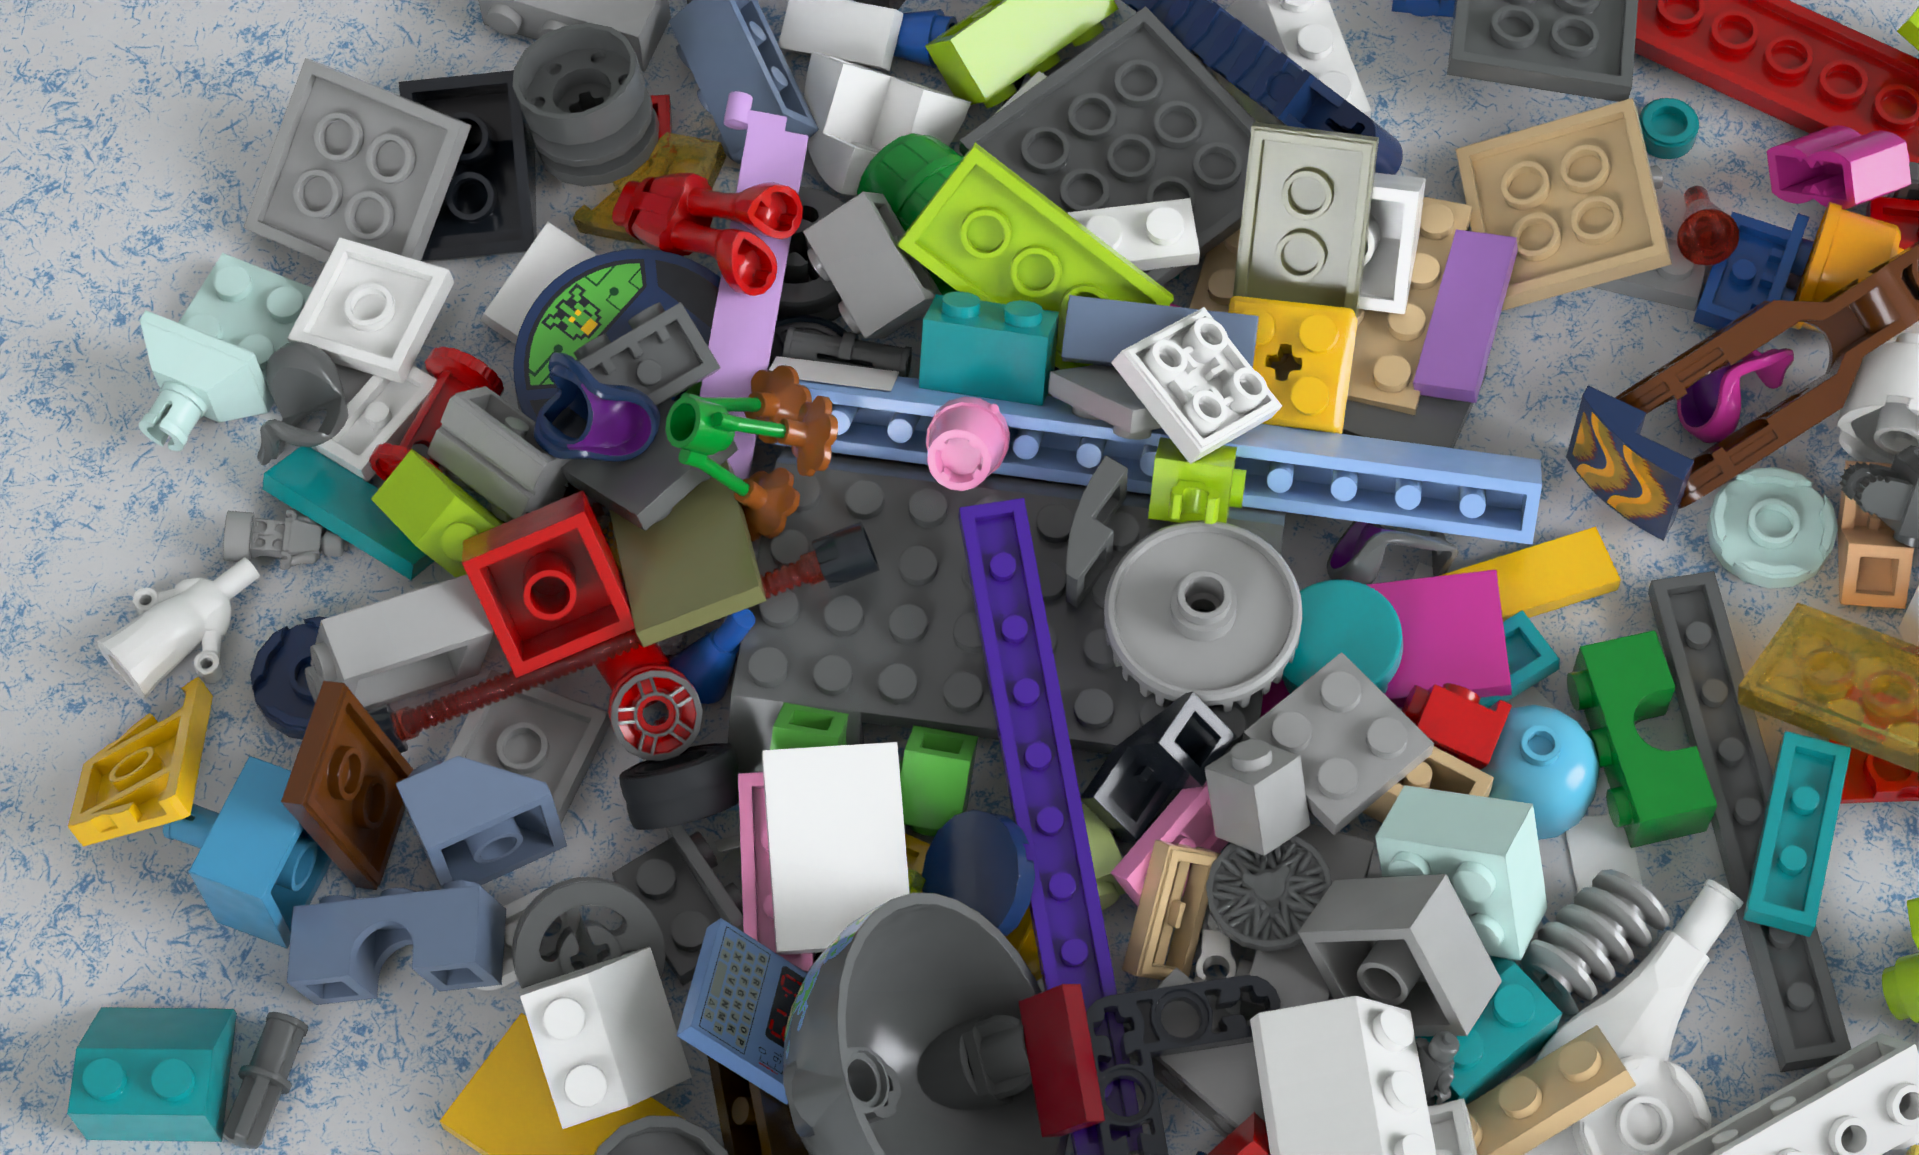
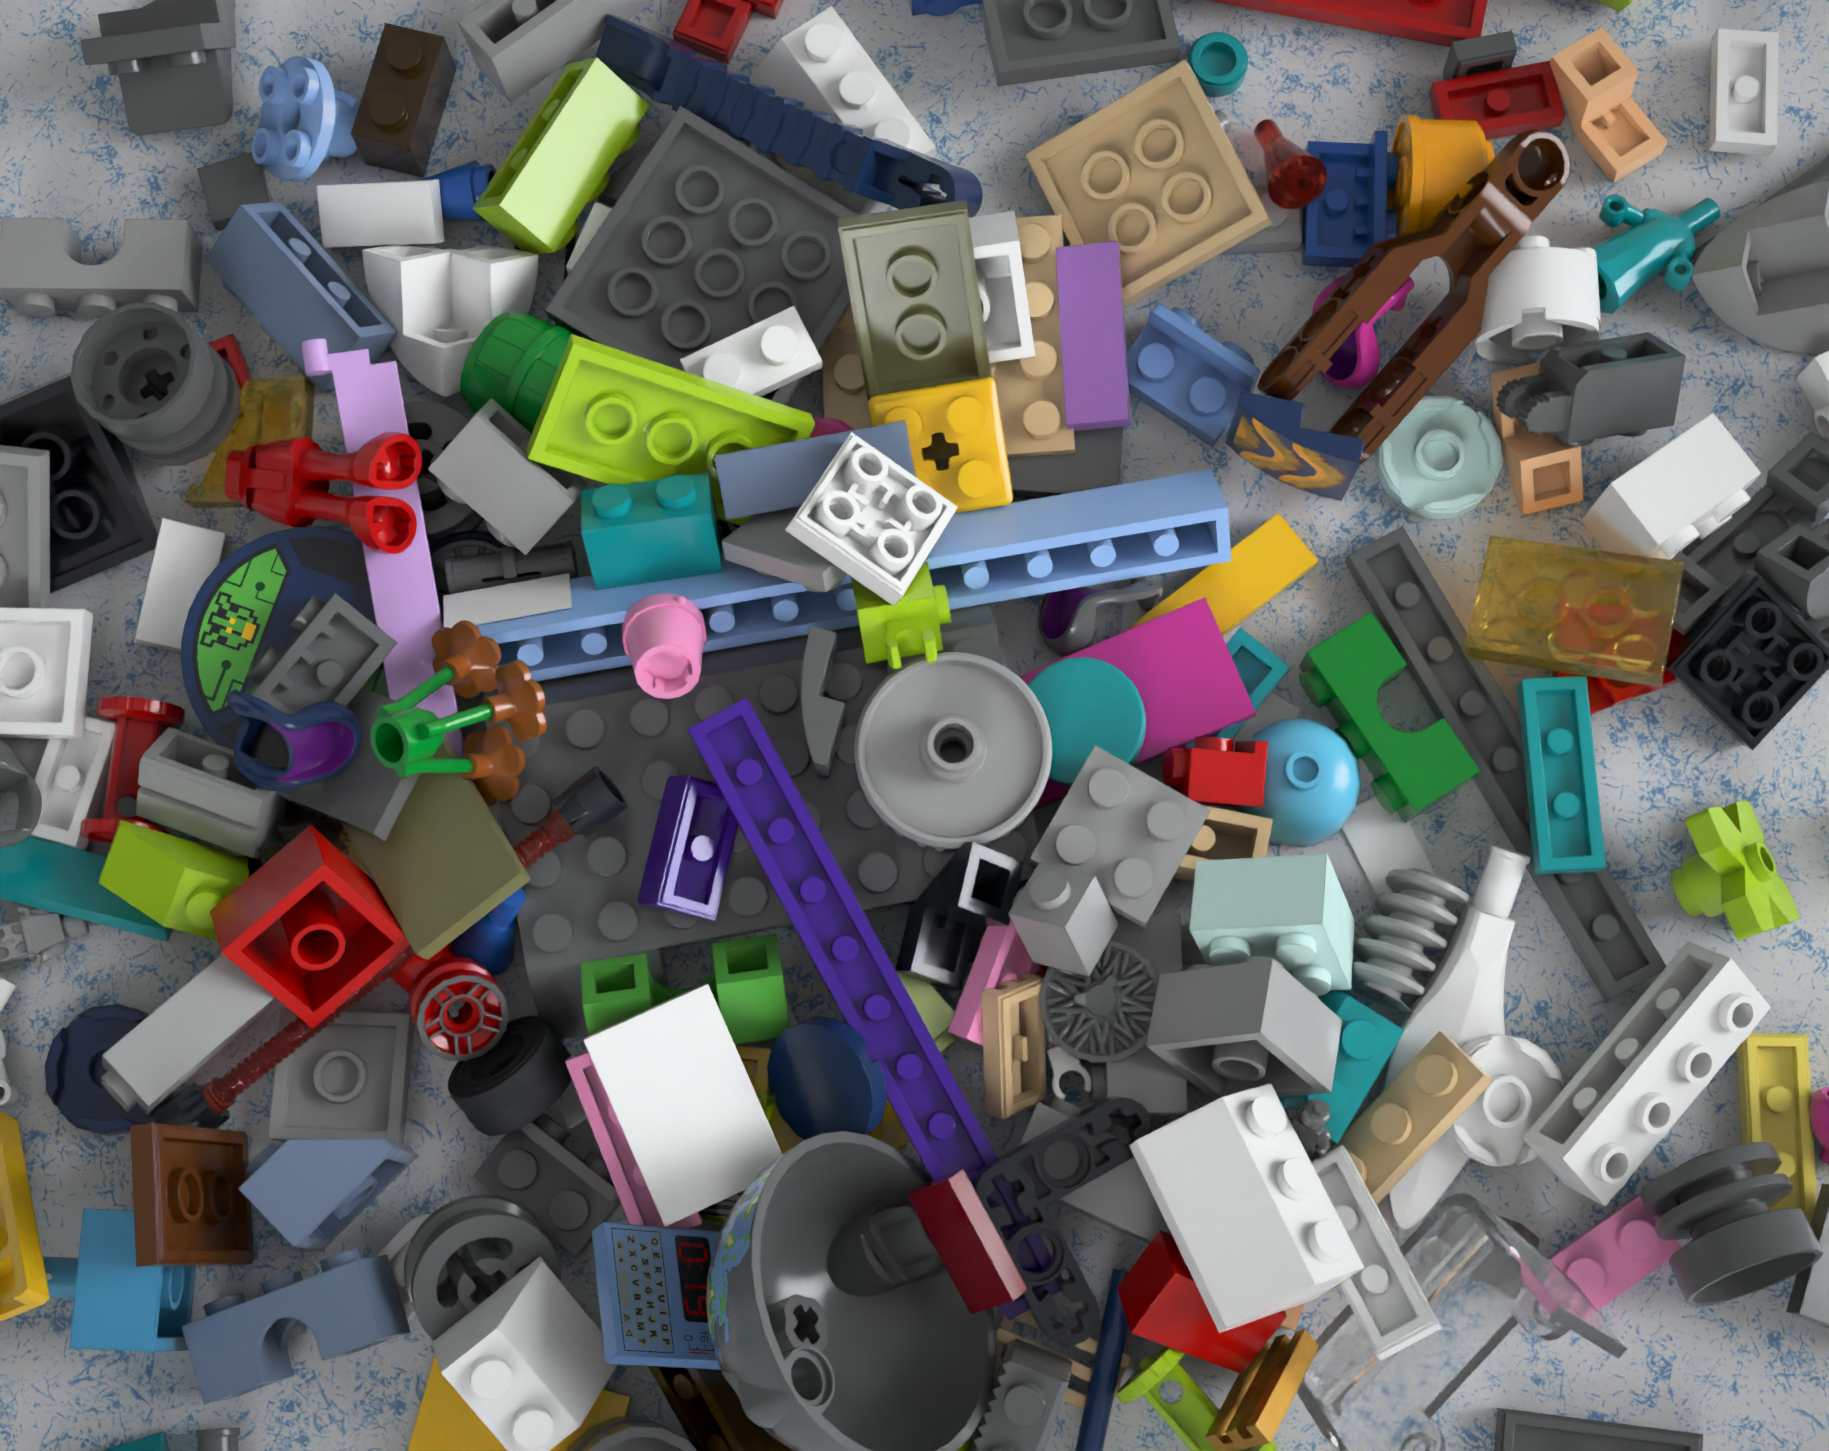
camera: 20 degrees left, 15 degrees up
(923, 628) = (689, 849): none -> dark purple slope
(1543, 377) = (1188, 373): none -> medium blue bracket
(1839, 167) = (1398, 67): dark pink brick -> none

